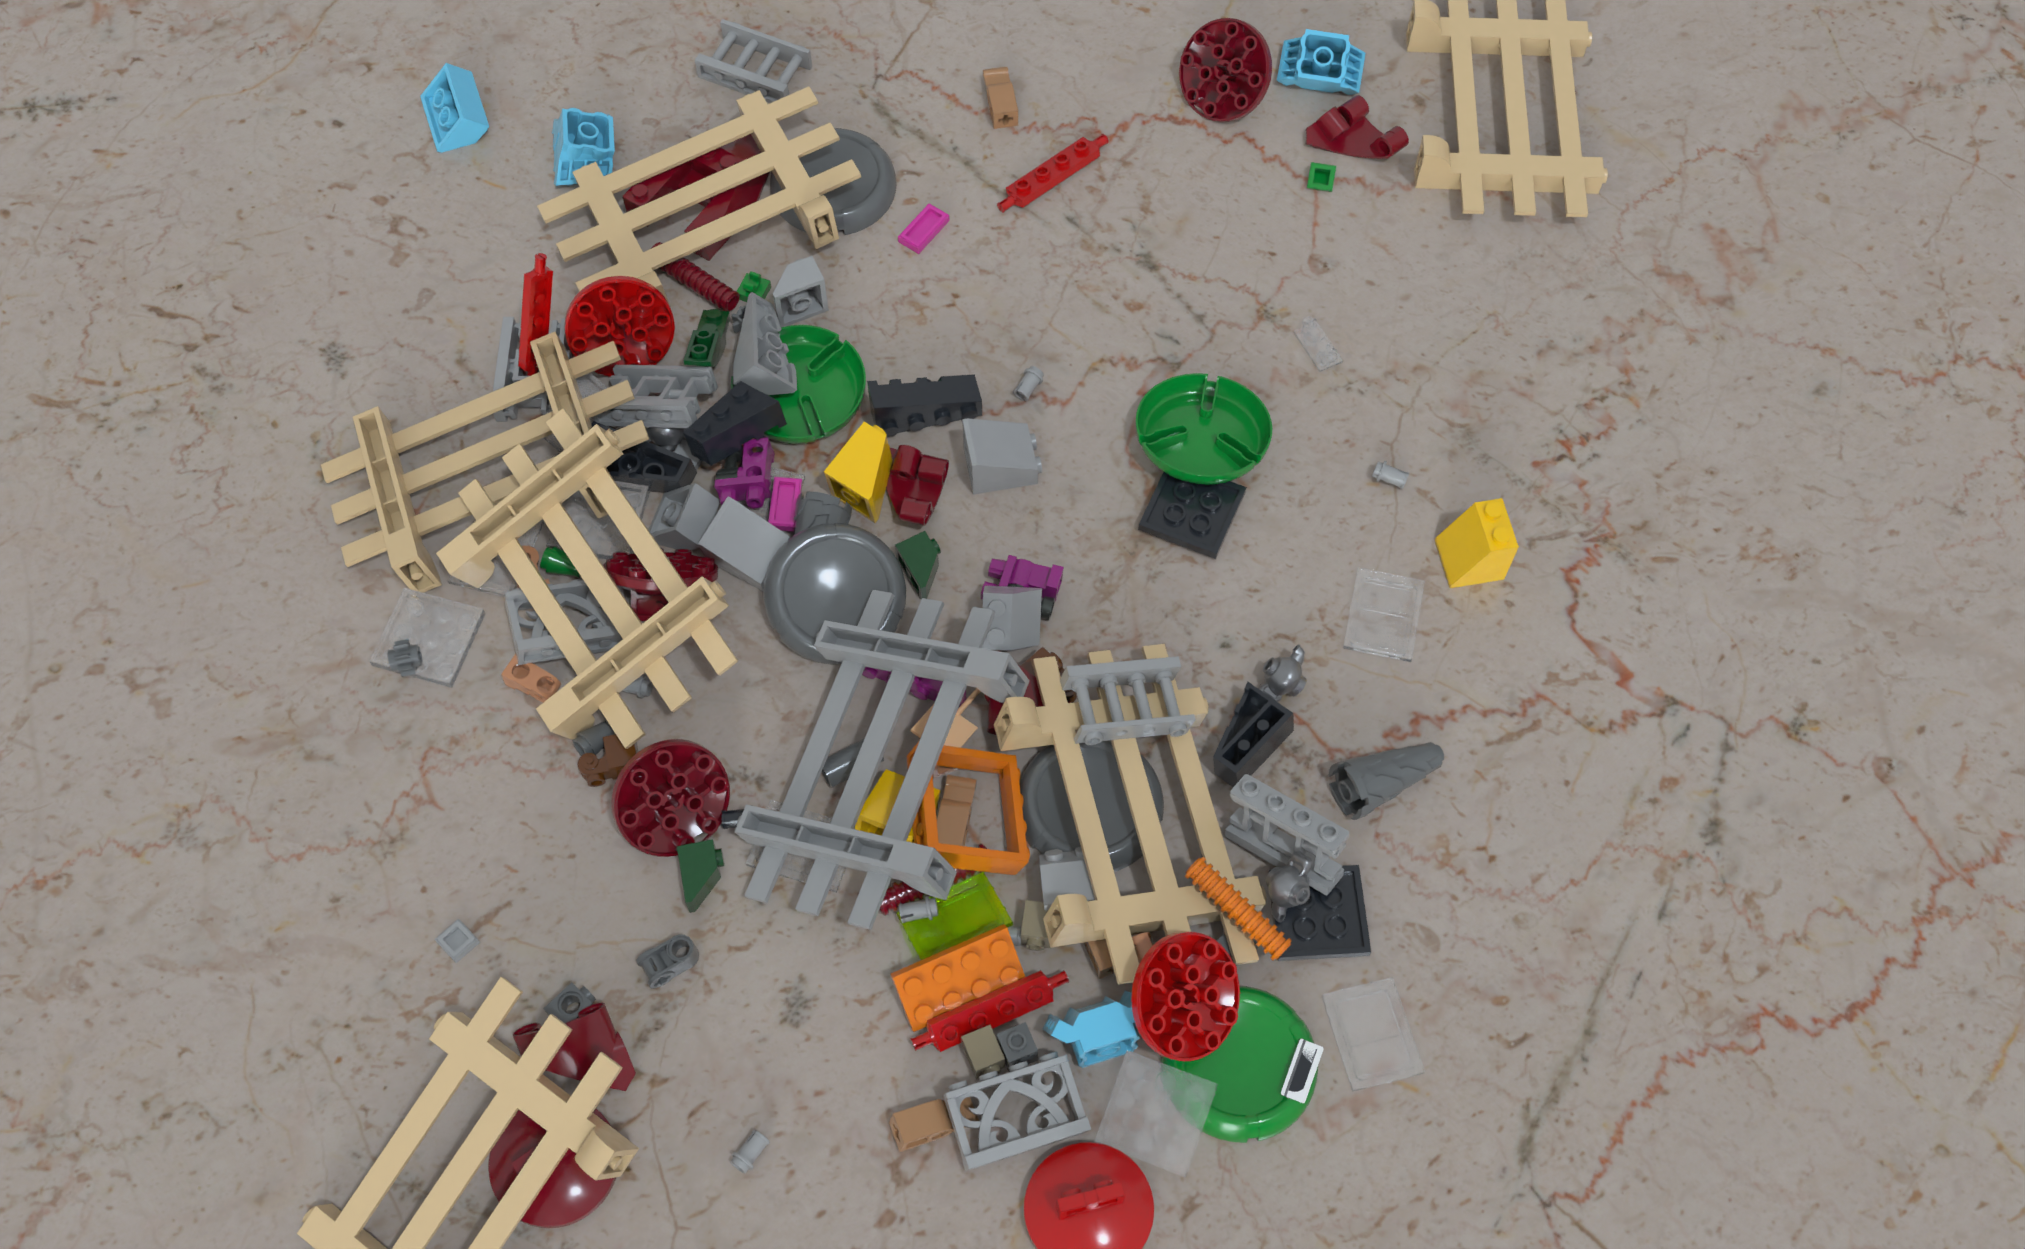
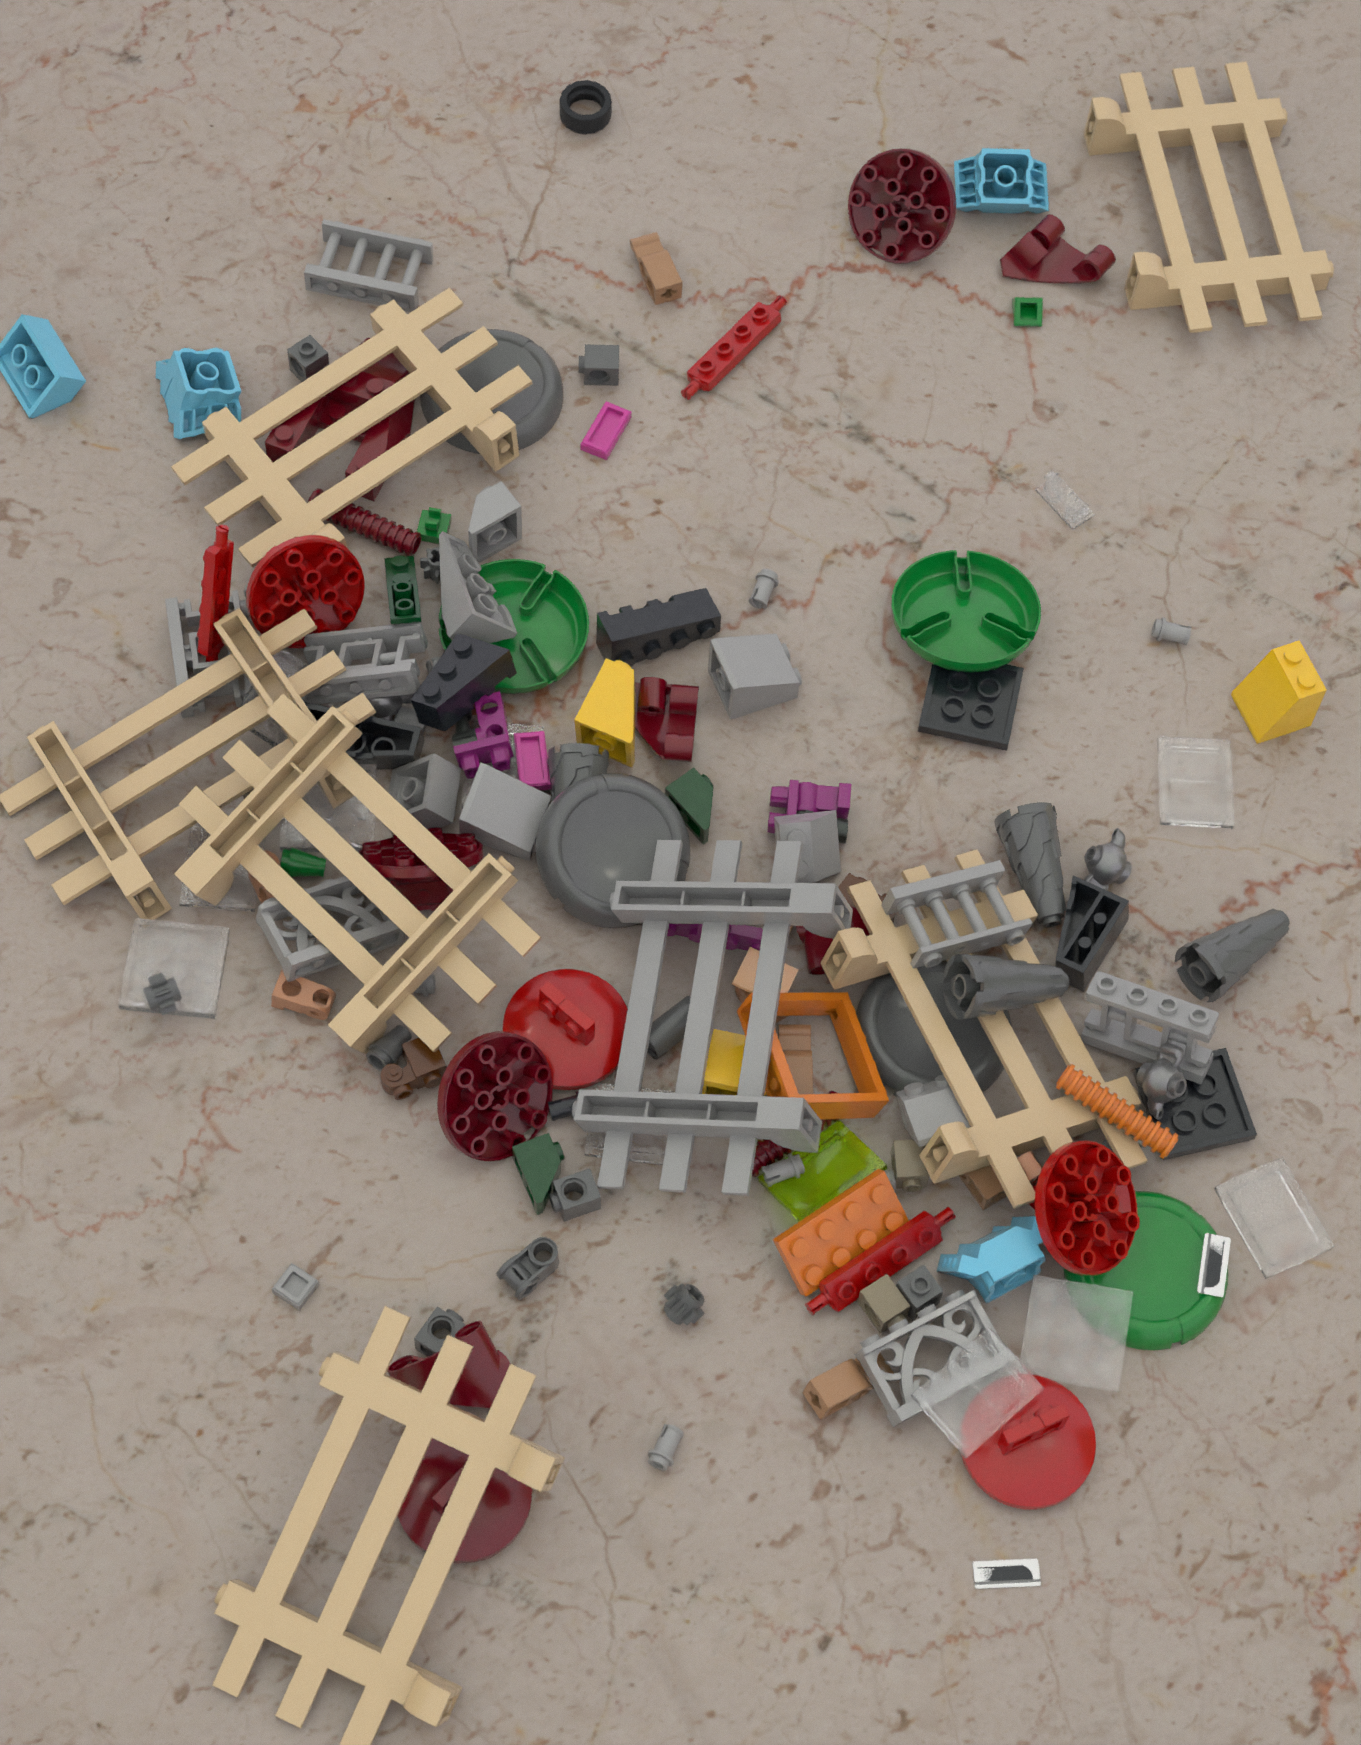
camera: 15 degrees left, 0 degrees up
(678, 129) = (307, 358): none -> dark grey brick
(735, 909) = (580, 1182): none -> dark grey brick
(758, 743) = (573, 1022): none -> red bracket
(798, 1019) = (684, 1304): none -> dark grey gear
(931, 171) = (600, 365): none -> dark grey brick
(1046, 1154) = (977, 1392): none -> clear piece
(1143, 770) = (994, 984): none -> dark grey cone
(1217, 658) = (1035, 856): none -> dark grey cone

